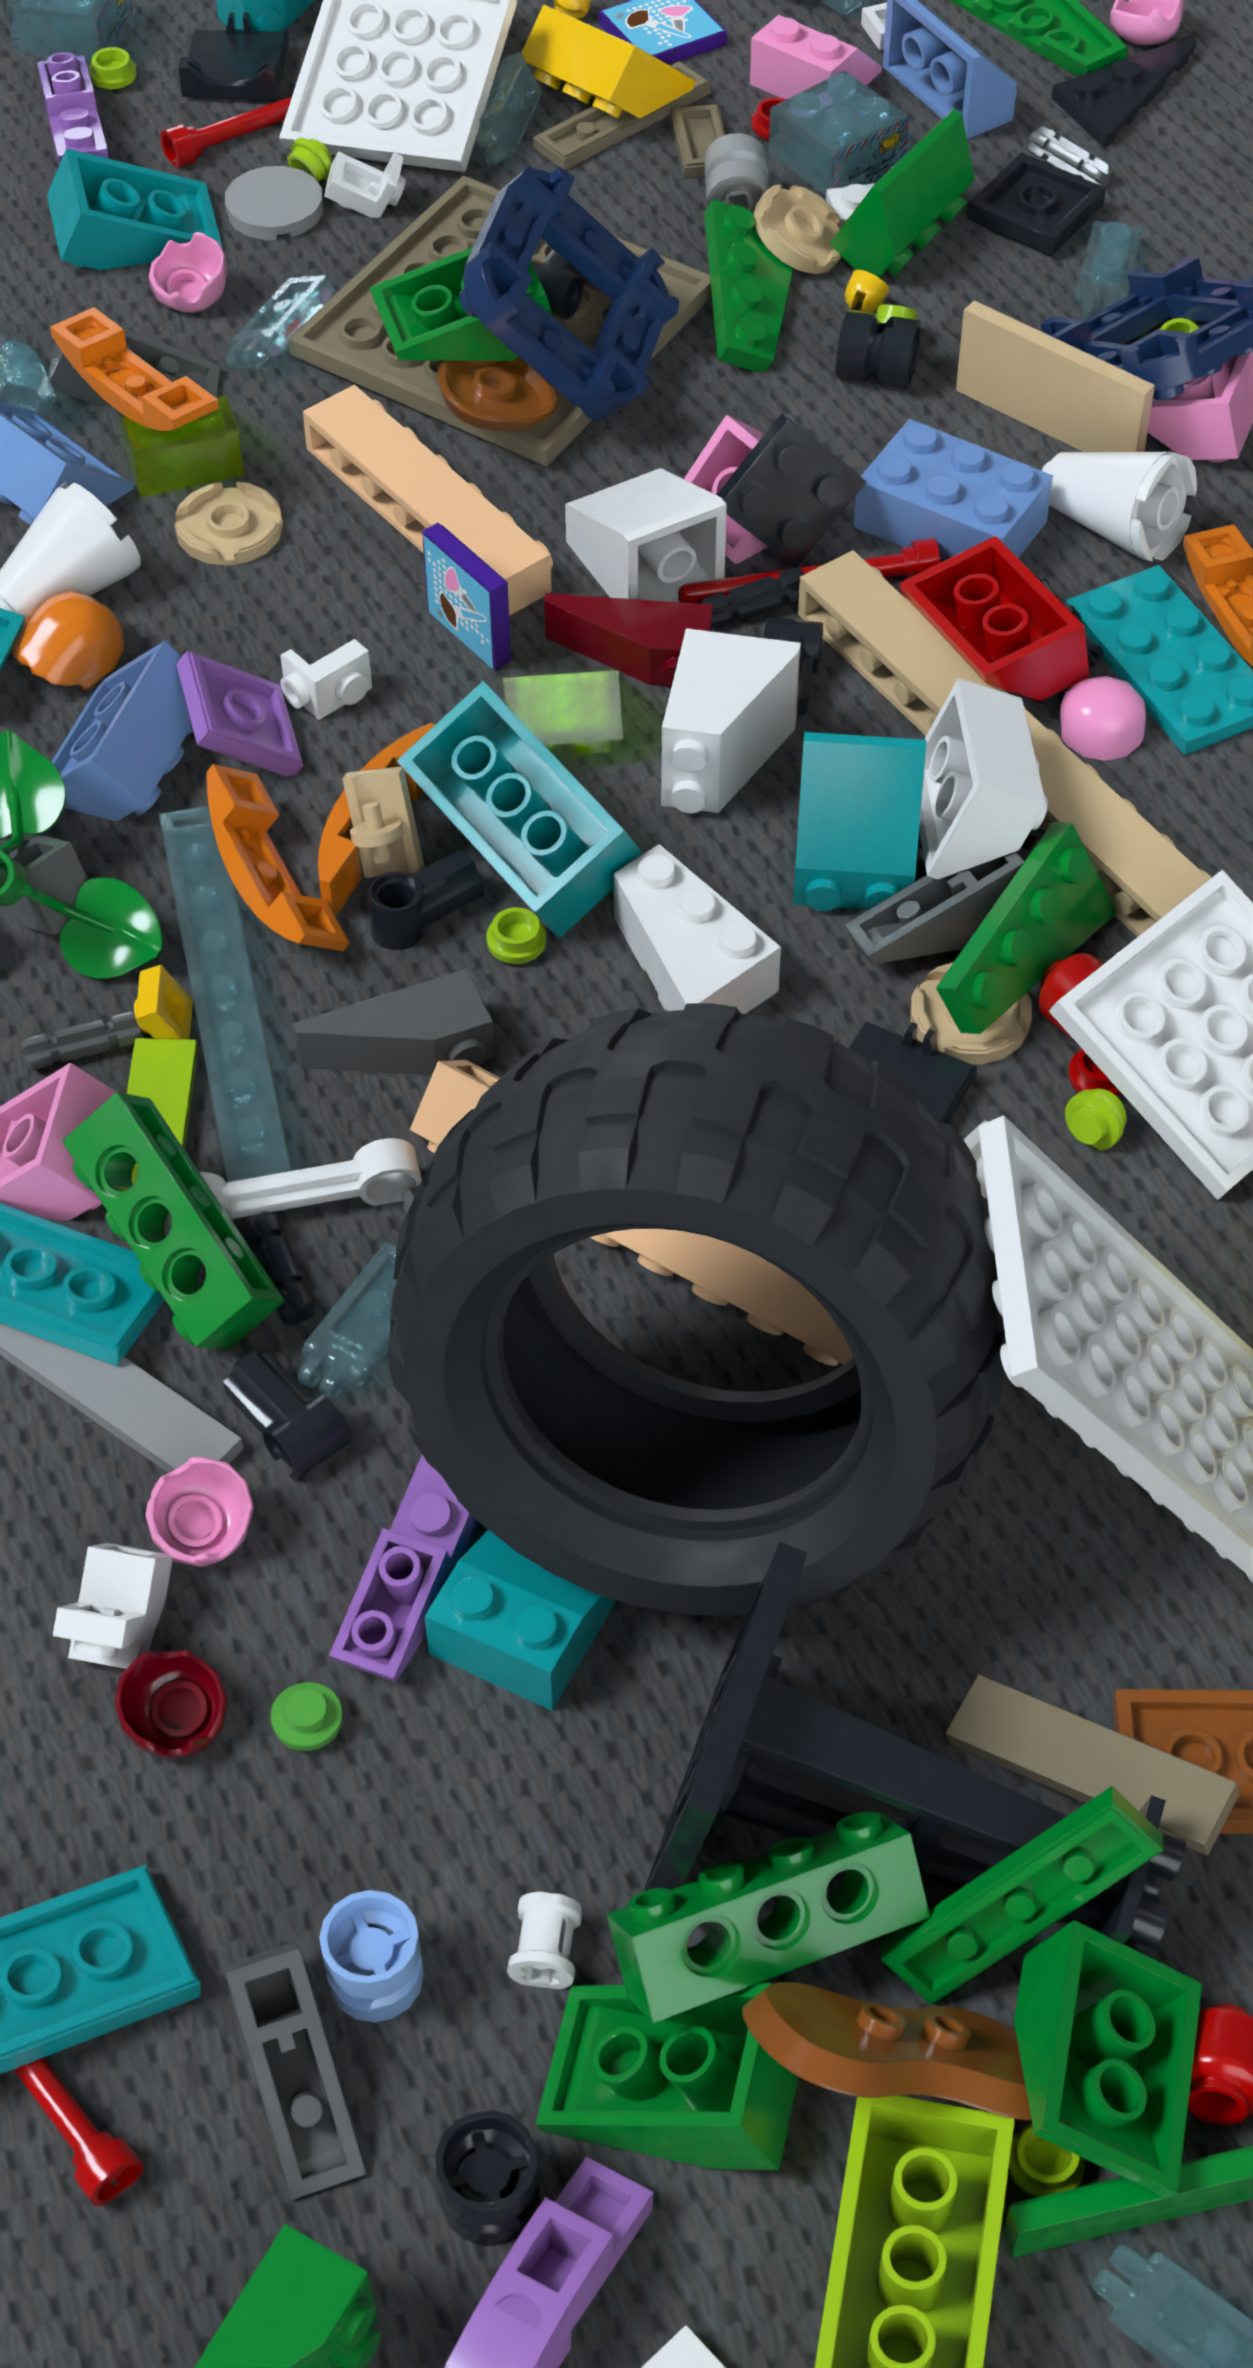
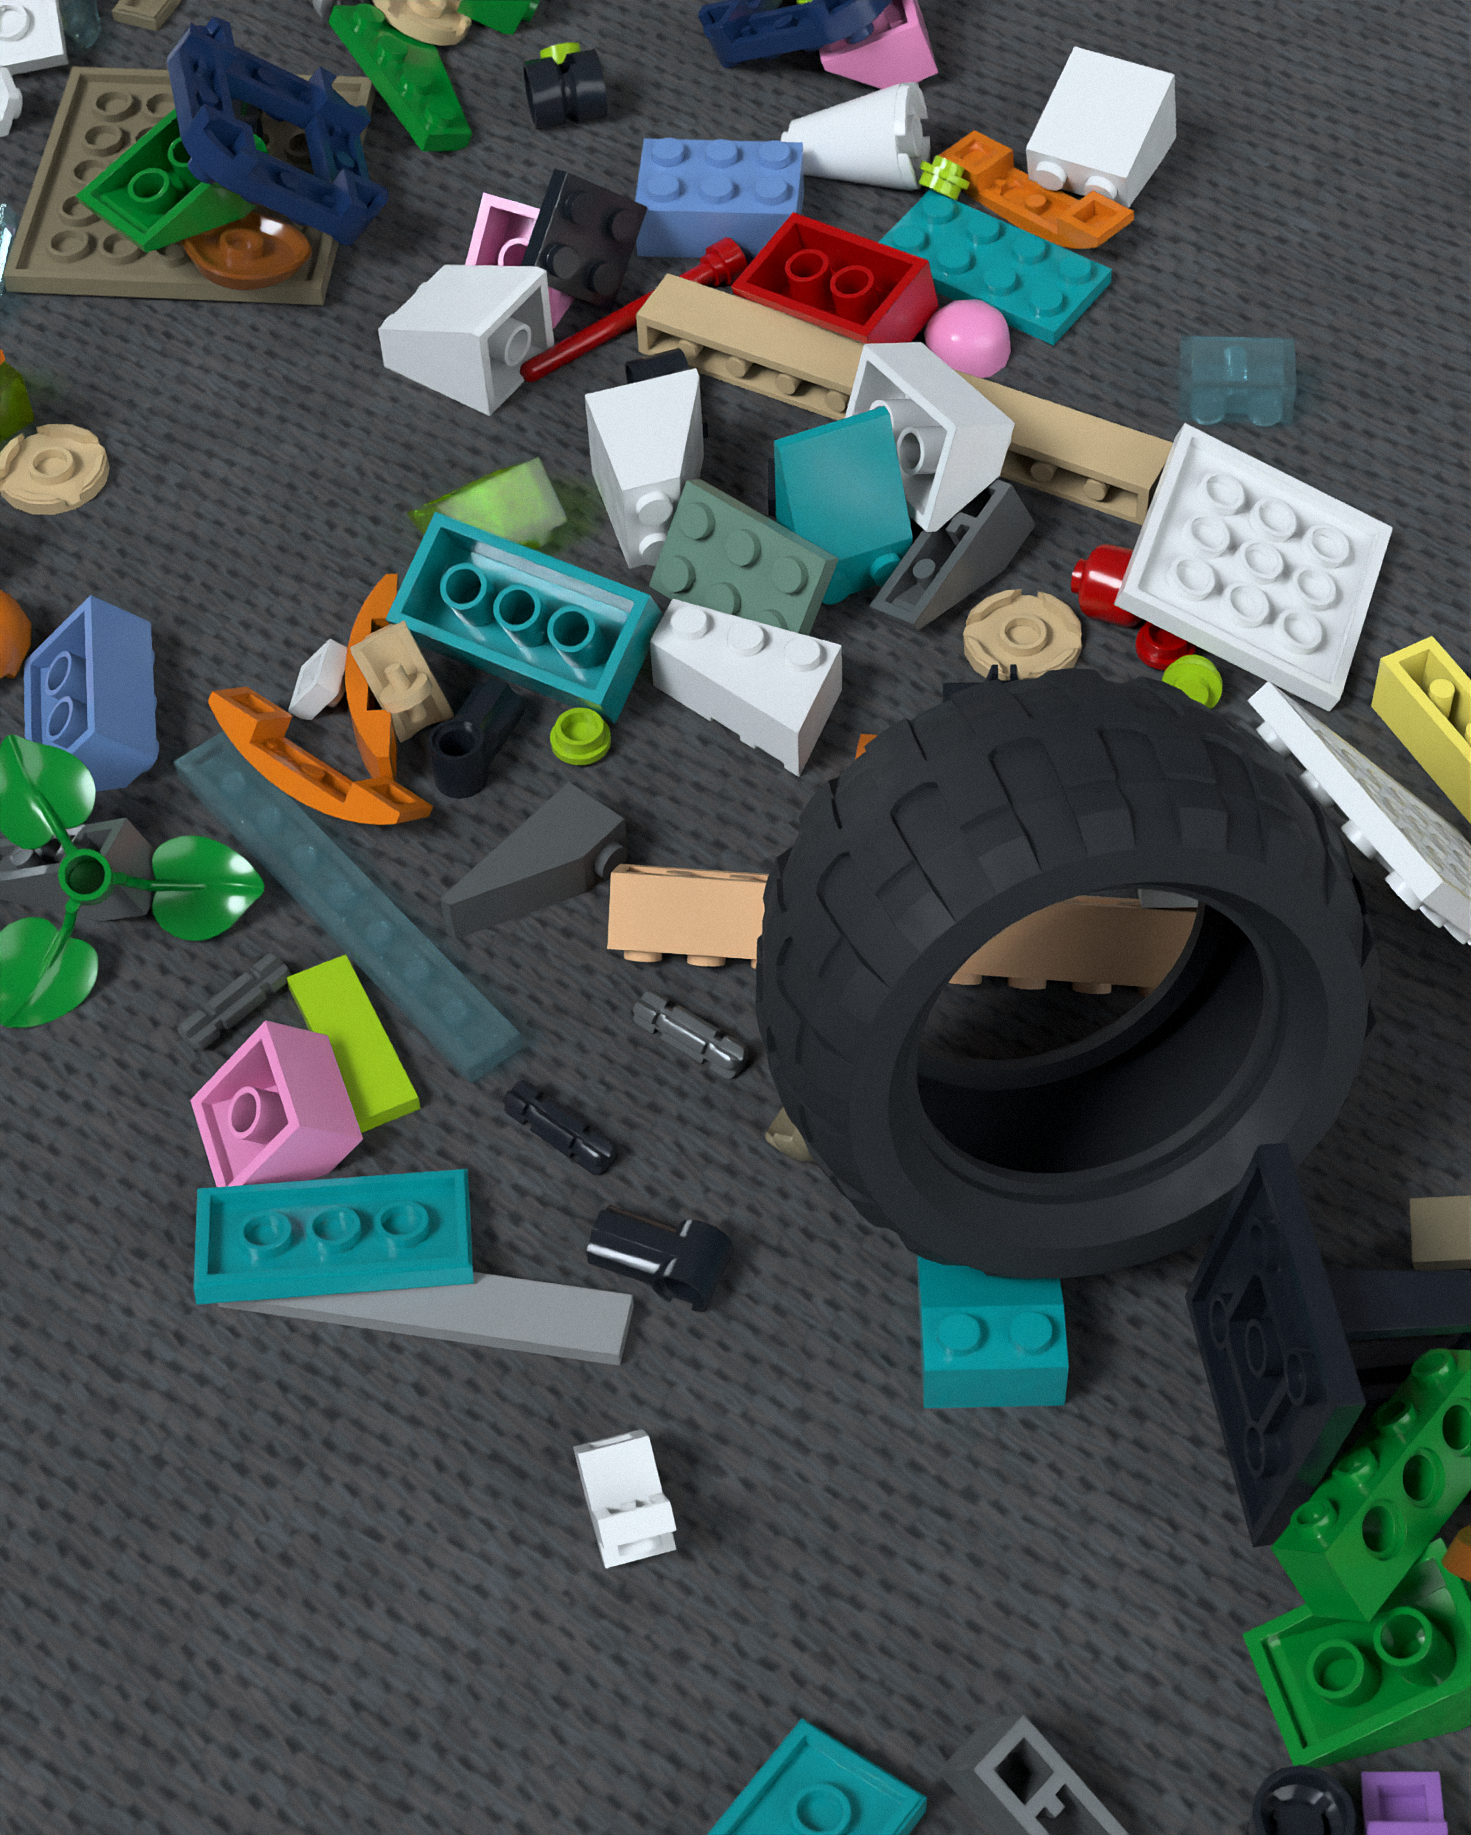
camera: 25 degrees left, 0 degrees up
(162, 1005) = (295, 936): yellow plate -> none
(174, 1691) = (733, 1548): dark red hair -> none
(197, 1501) = (644, 1361): bright pink hair -> none
(236, 1286) = (552, 1158): green brick -> none
(239, 714) = (193, 638): medium lavender tile -> none
(306, 1716) = (857, 1514): bright green plate -> none
(321, 797) = (320, 681): none -> white plate
(329, 682) = (255, 577): white bracket -> none
(354, 1331) = (677, 1134): clear light blue hinge -> none
(372, 1956) = (1071, 1690): light blue wheel -> none
(376, 1174) = (461, 1098): white piece -> none
(404, 1577) = (865, 1327): medium lavender slope -> none
(420, 488) = (237, 376): light nougat brick -> none
(467, 596) = (343, 446): tile -> none
(545, 1940) = (1201, 1605): white bush -> none
(624, 633) = (511, 425): dark red slope -> none
(743, 839) = (741, 562): none -> sand green plate
(755, 597) = (595, 351): black axle -> none
(867, 289) = (515, 38): yellow hinge -> none
(1035, 922) = (1043, 544): green wing -> none
(1051, 384) = (747, 64): tan tile -> none
(1173, 557) = (943, 177): none -> lime plate

